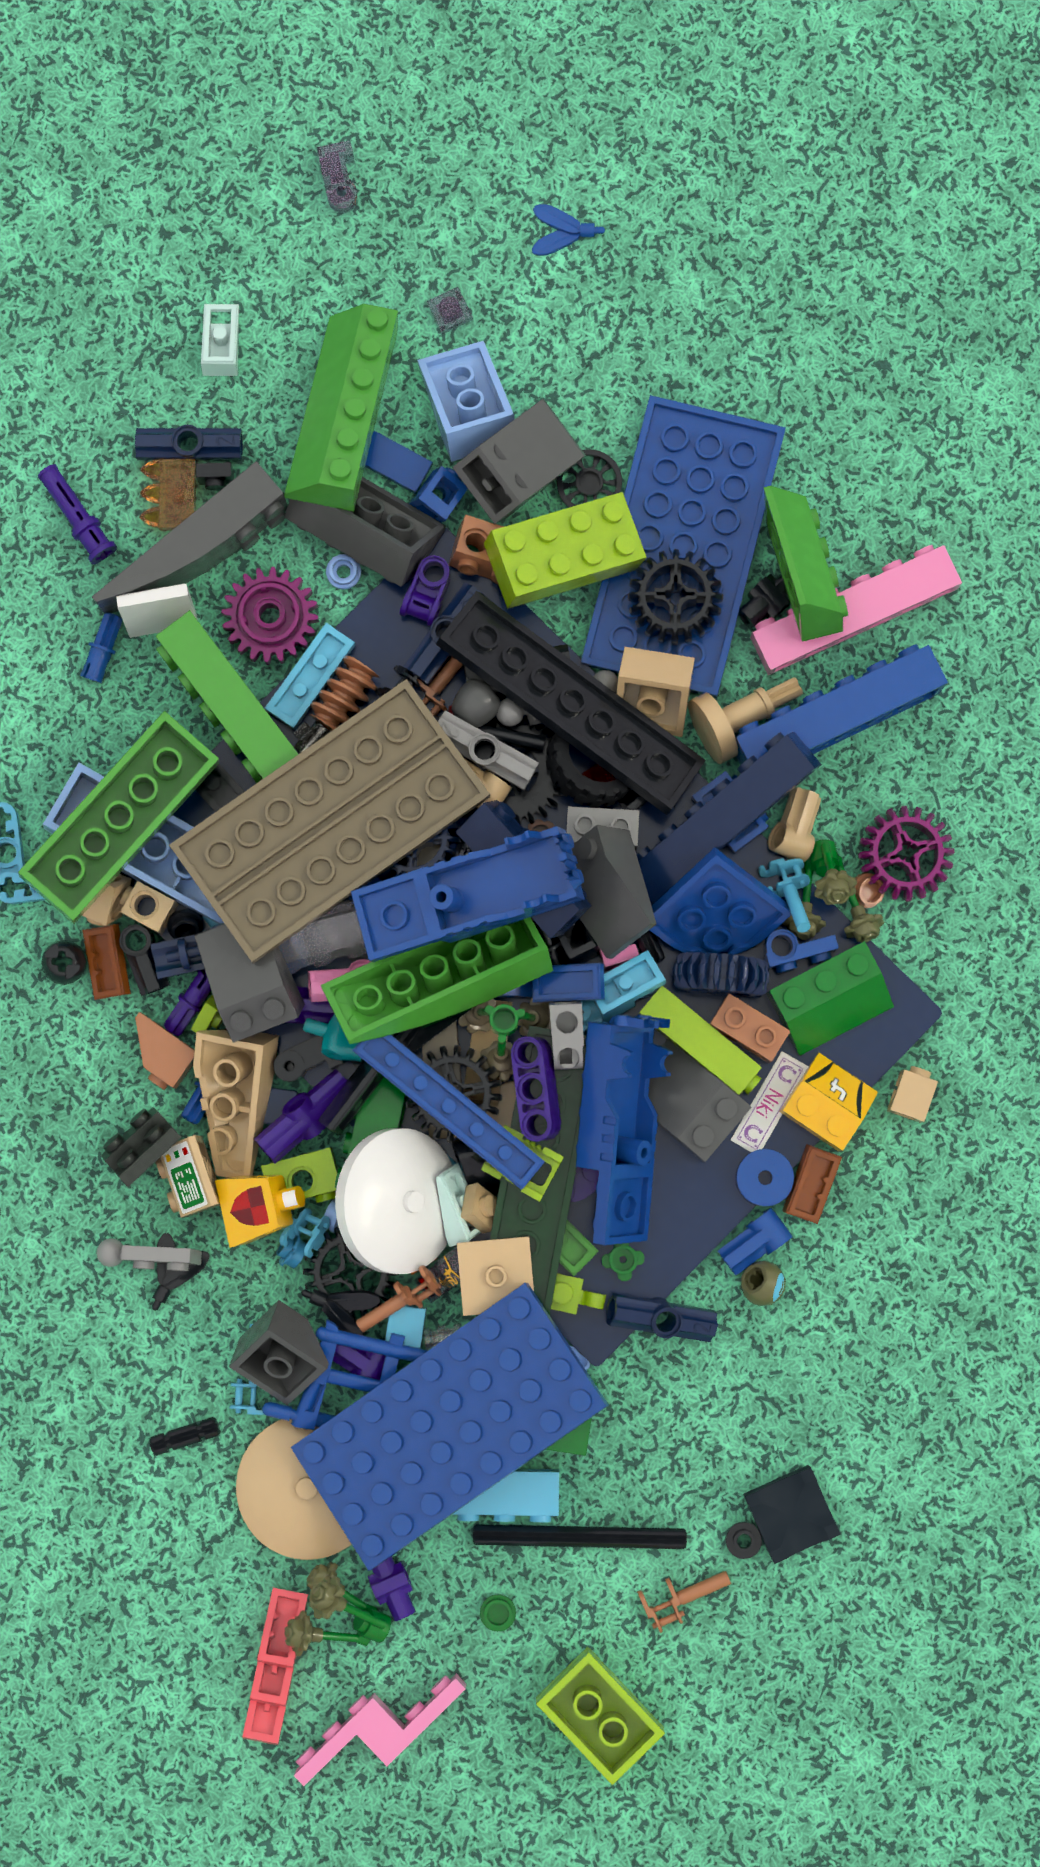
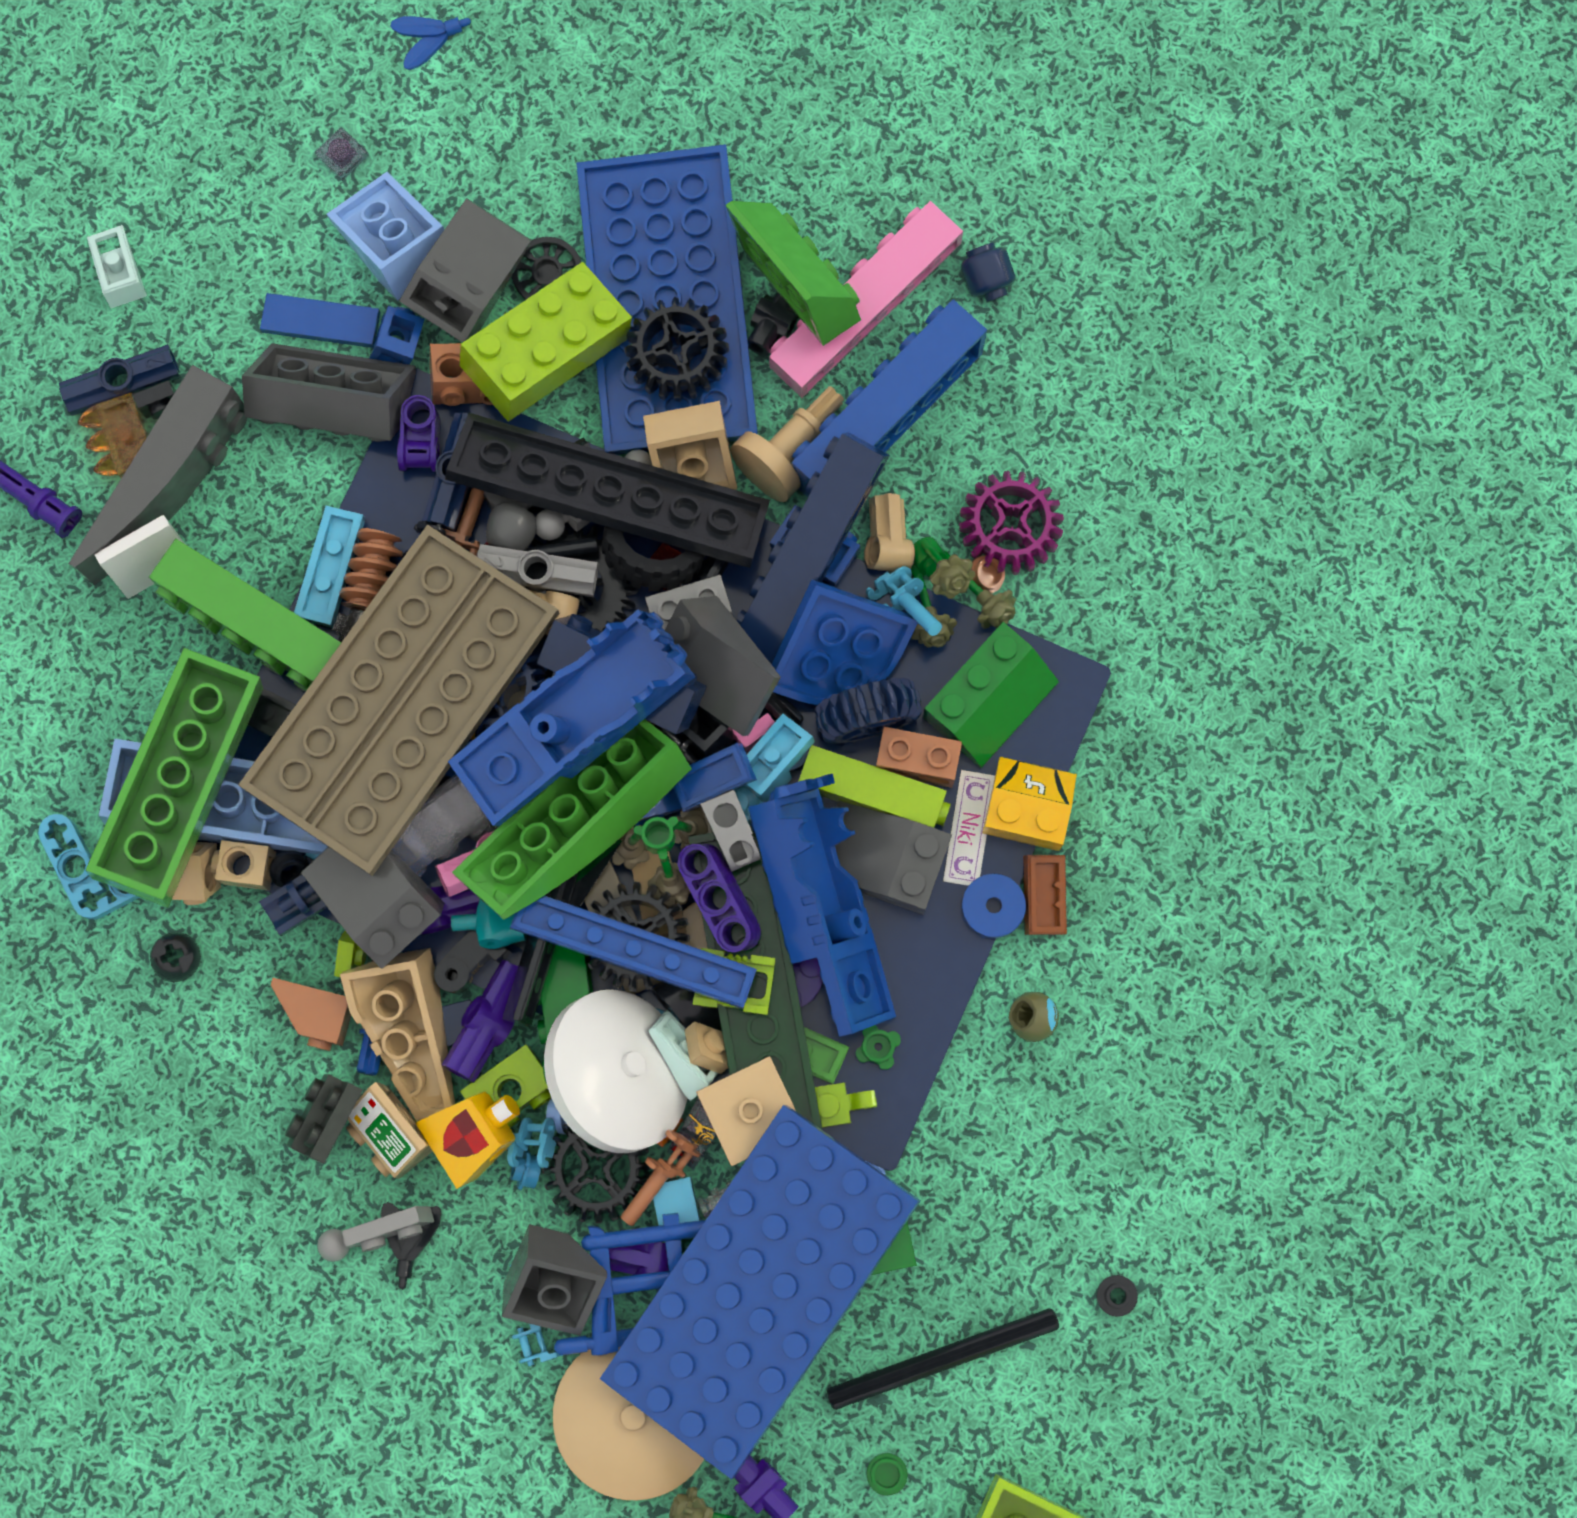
camera: 20 degrees left, 5 degrees down
(102, 648) = (102, 619): blue axle -> none
(106, 962) = (220, 939): dark orange plate -> none
(142, 961) = (258, 924): black piece -> none
(184, 1436) = (482, 1412): black axle -> none
(188, 1004) = (323, 951): dark purple axle -> none
(265, 594) = (255, 501): magenta gear -> none
(337, 562) = (322, 440): light blue plate -> none
(338, 1305) = (594, 1205): black piece -> none
(339, 188) = (182, 70): leg -> none
(343, 407) = (265, 283): bright green slope -> none
(519, 1494) = (860, 1337): medium azure brick -> none
(641, 1315) = (920, 1094): dark blue piece -> none
(683, 1597) = (1077, 1381): nougat piece -> none
(759, 1238) = (1012, 971): blue piece -> none
(791, 1514) = (1156, 1248): black brick -> none
(816, 950) = (955, 652): blue plate -> none
(913, 1094) = (1113, 763): tan brick -> none
(970, 625) = (988, 272): none -> dark blue head

